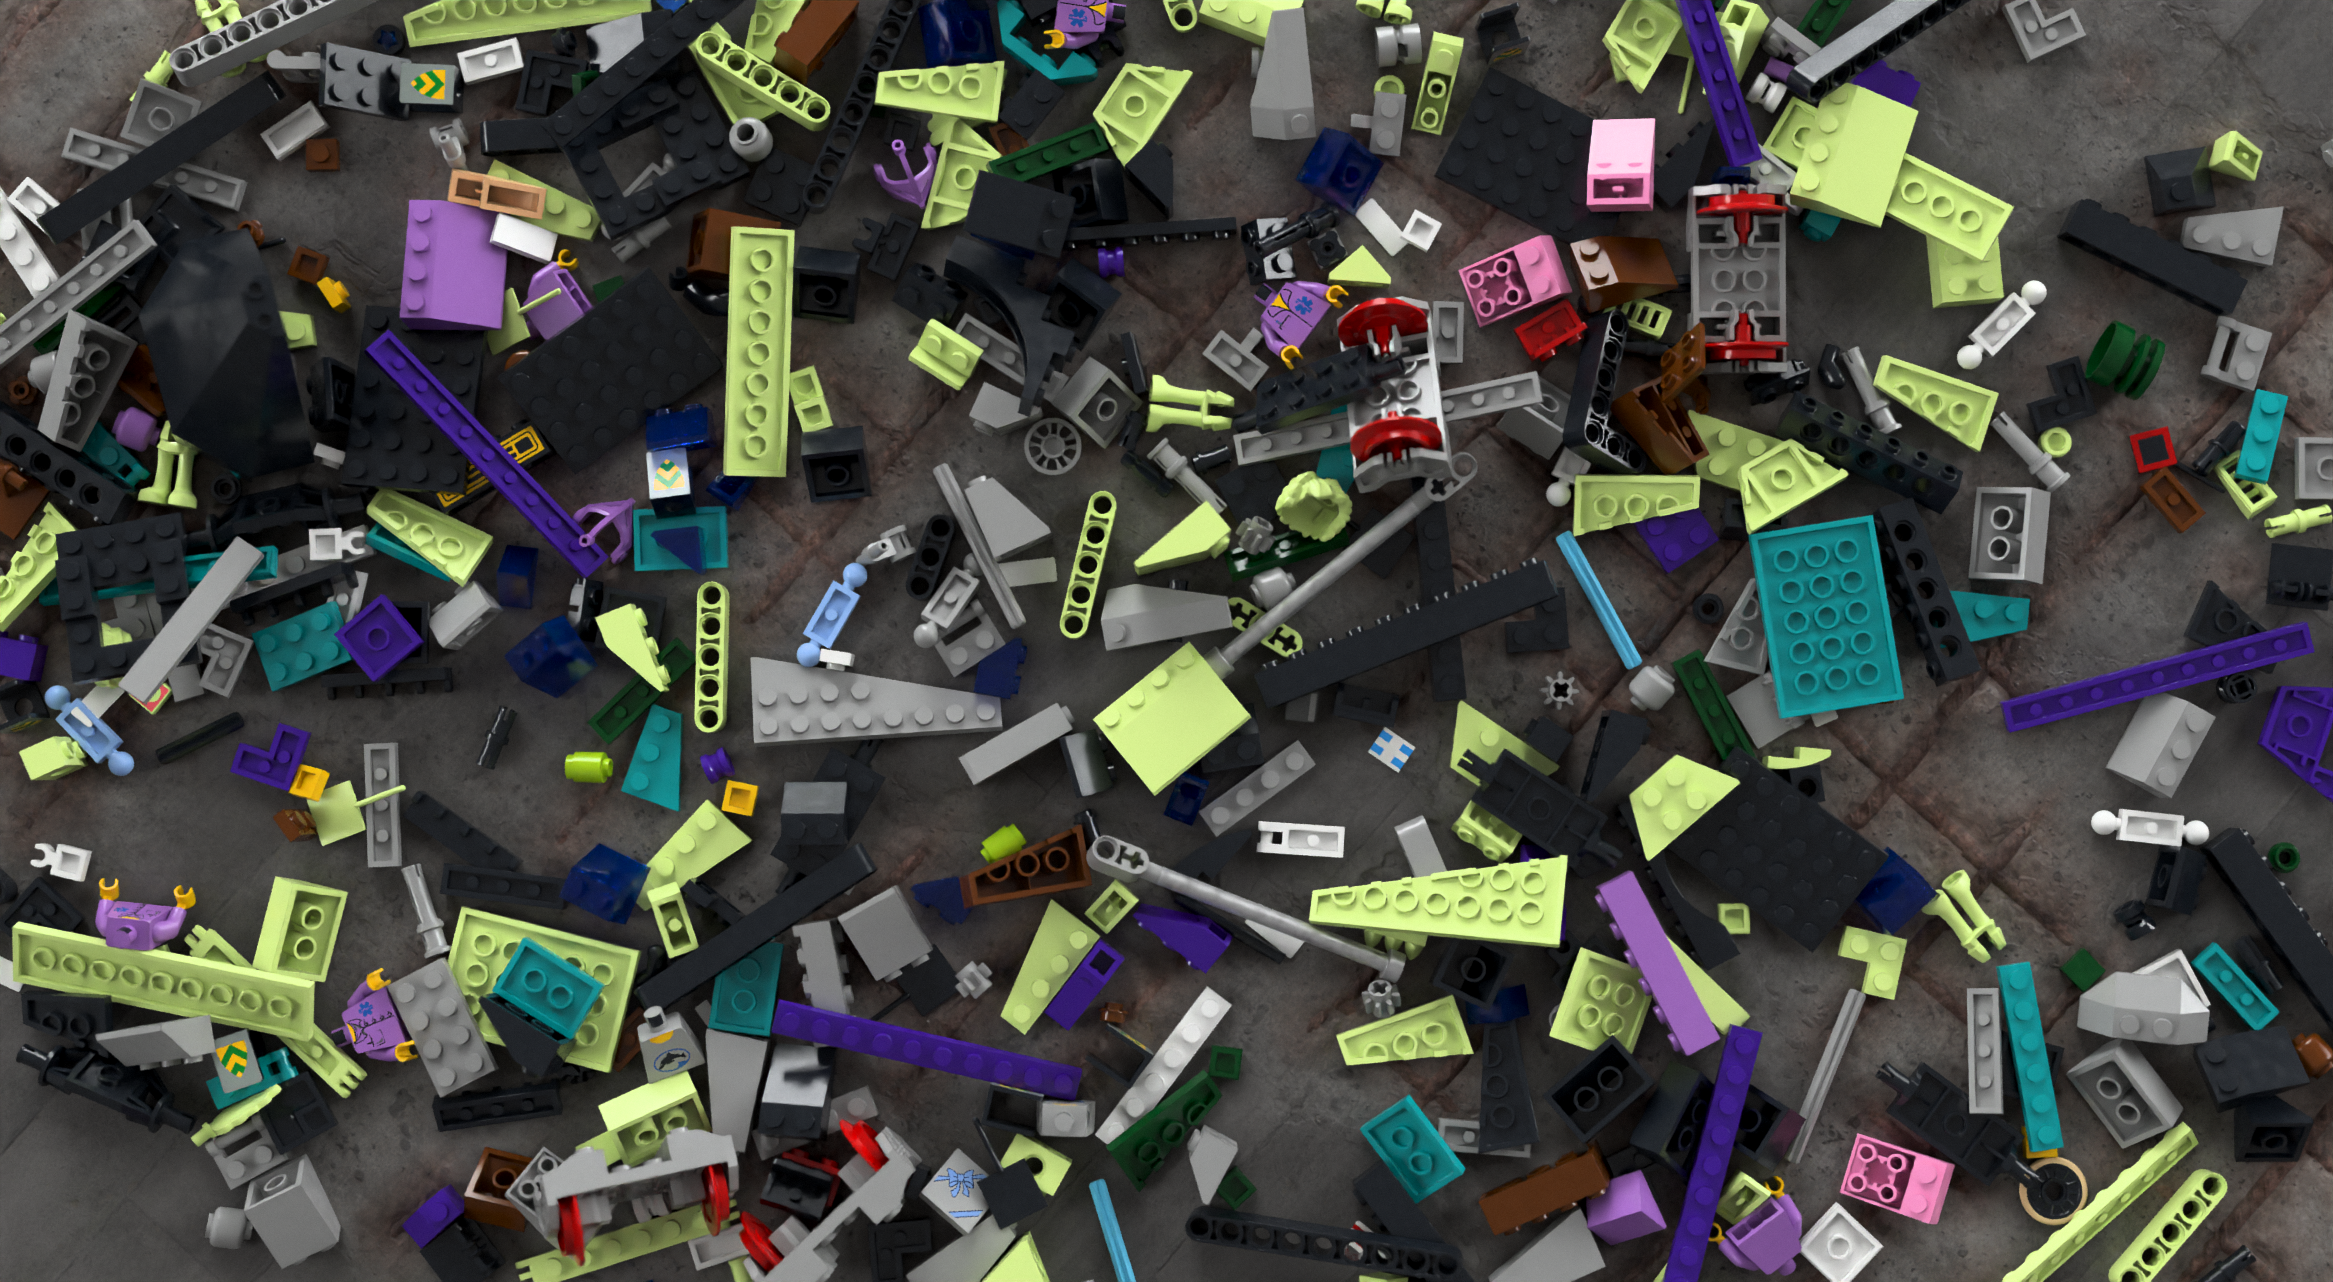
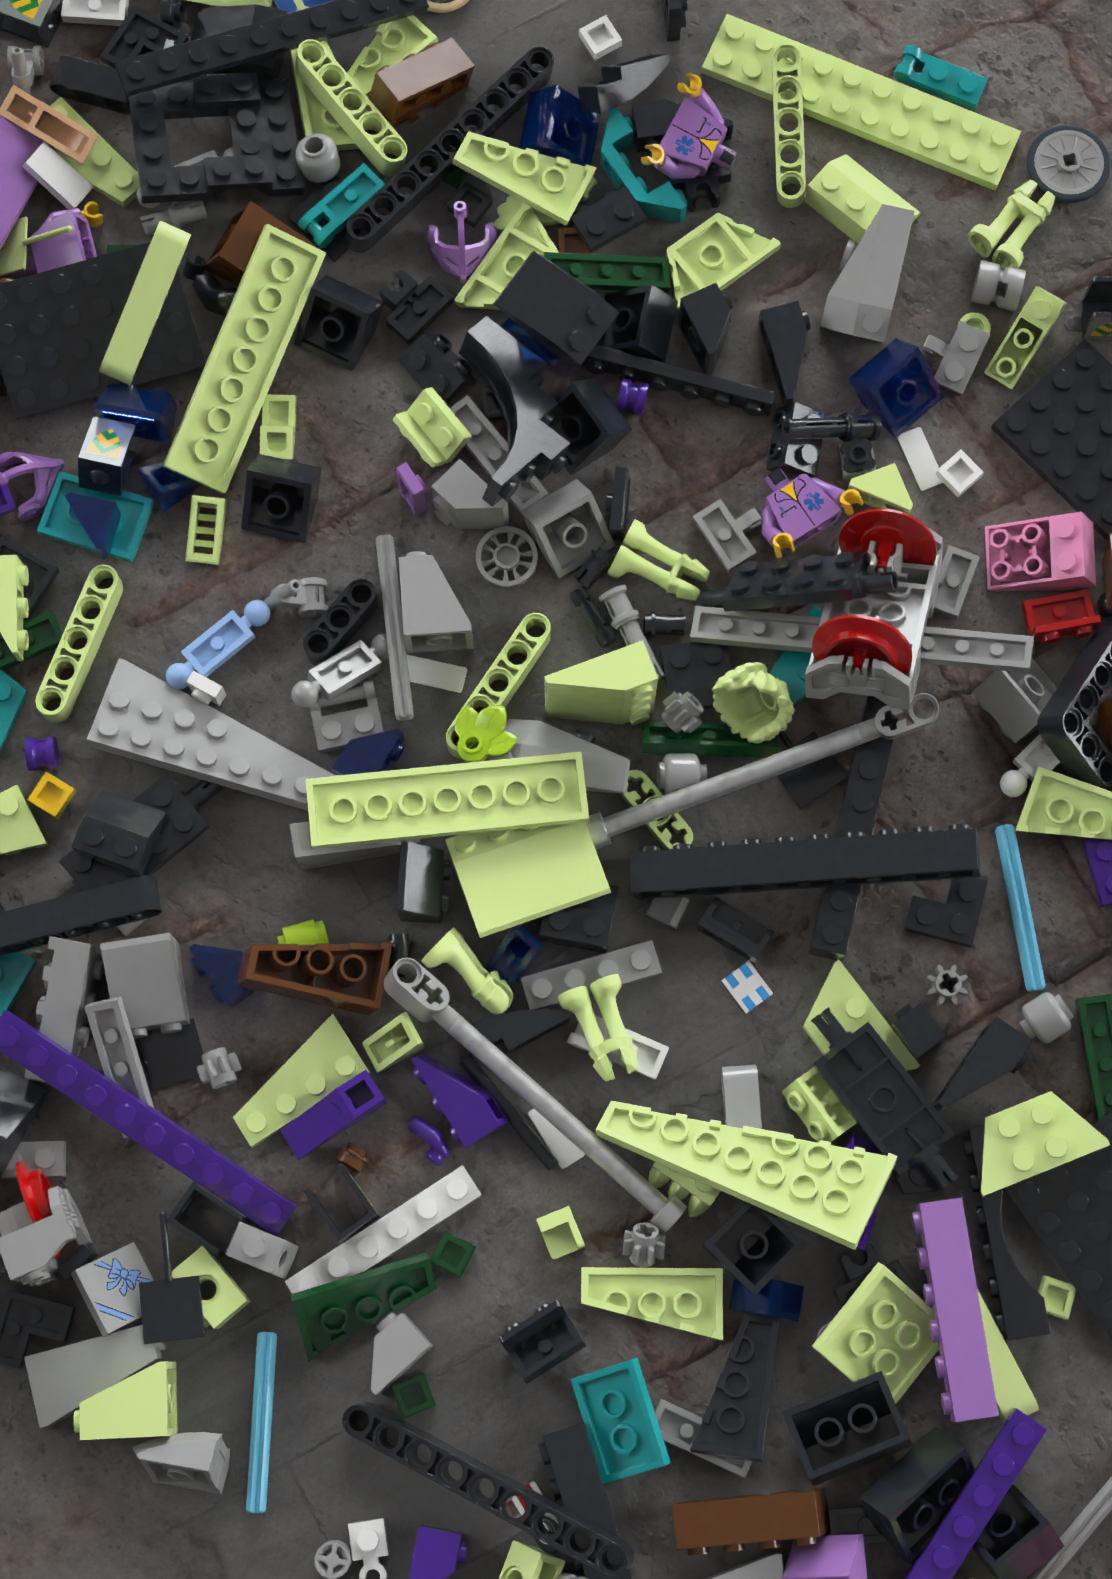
camera: 20 degrees right, 10 degrees down
(653, 335) = (145, 302): none -> yellowish green beam
(783, 487) = (206, 502): none -> yellowish green slope
(790, 176) = (340, 205): none -> teal plate
(883, 995) = (117, 1047): none -> light grey plate
(950, 418) = (412, 489): none -> medium lavender plate
(1085, 689) = (446, 800): none -> yellowish green plate
(1092, 612) = (483, 728): none -> lime plate
(1173, 832) = (485, 986): none -> yellowish green piece
(1173, 972) = (433, 1137): none -> dark purple arm
(1227, 162) = (784, 338): none -> black slope
(1276, 804) = (604, 992): none -> yellowish green piece
(1308, 1013) = (560, 1233): none -> yellowish green panel
(1325, 1107) = (541, 1341): none -> black bracket

